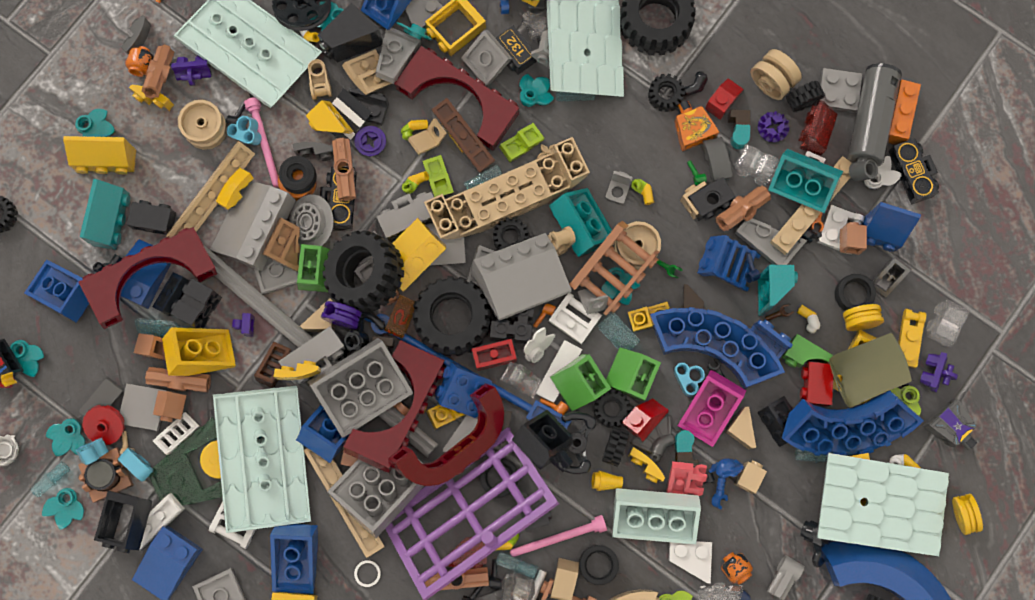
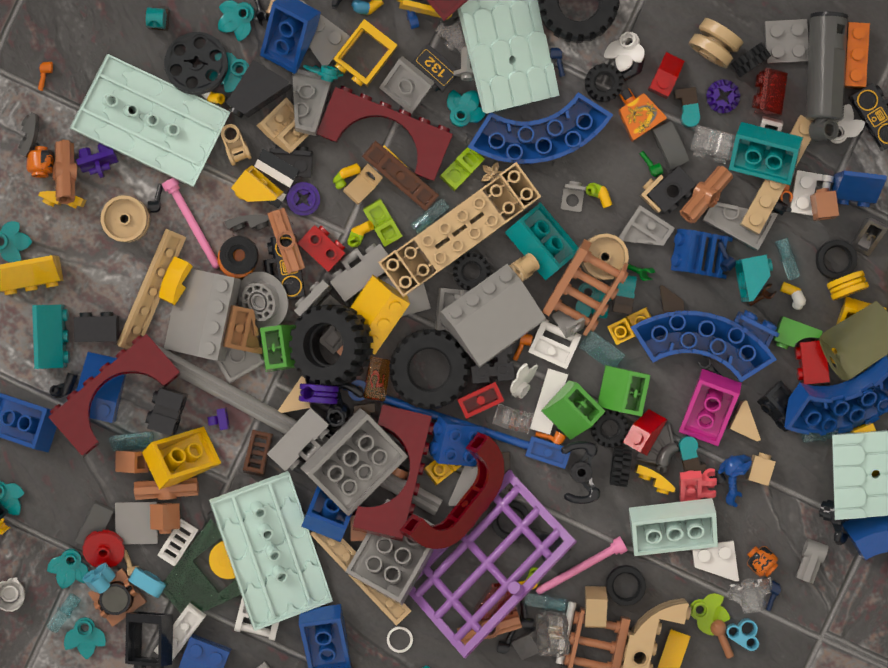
camera: 15 degrees left, 10 degrees up
(170, 293) = (138, 404): black bracket -> none
(239, 131) = (170, 220): medium azure piece -> none
(302, 371) = (296, 459): yellow slope -> none
(362, 221) = (318, 292): none -> light grey plate
(376, 186) = (322, 247): none -> red brick
(545, 441) = (550, 479): black hinge -> none
(600, 126) = (542, 138): none -> blue brick
(606, 481) = (617, 502): yellow cone -> none
(628, 60) = (556, 53): none -> dark blue hand
(649, 286) = (624, 299): none -> leg
(681, 230) = (646, 229): none -> light grey wing
(684, 379) = (677, 383): medium azure piece -> none
(691, 69) = (625, 53): none -> white plate
(809, 283) = (787, 258): none -> clear light blue axle

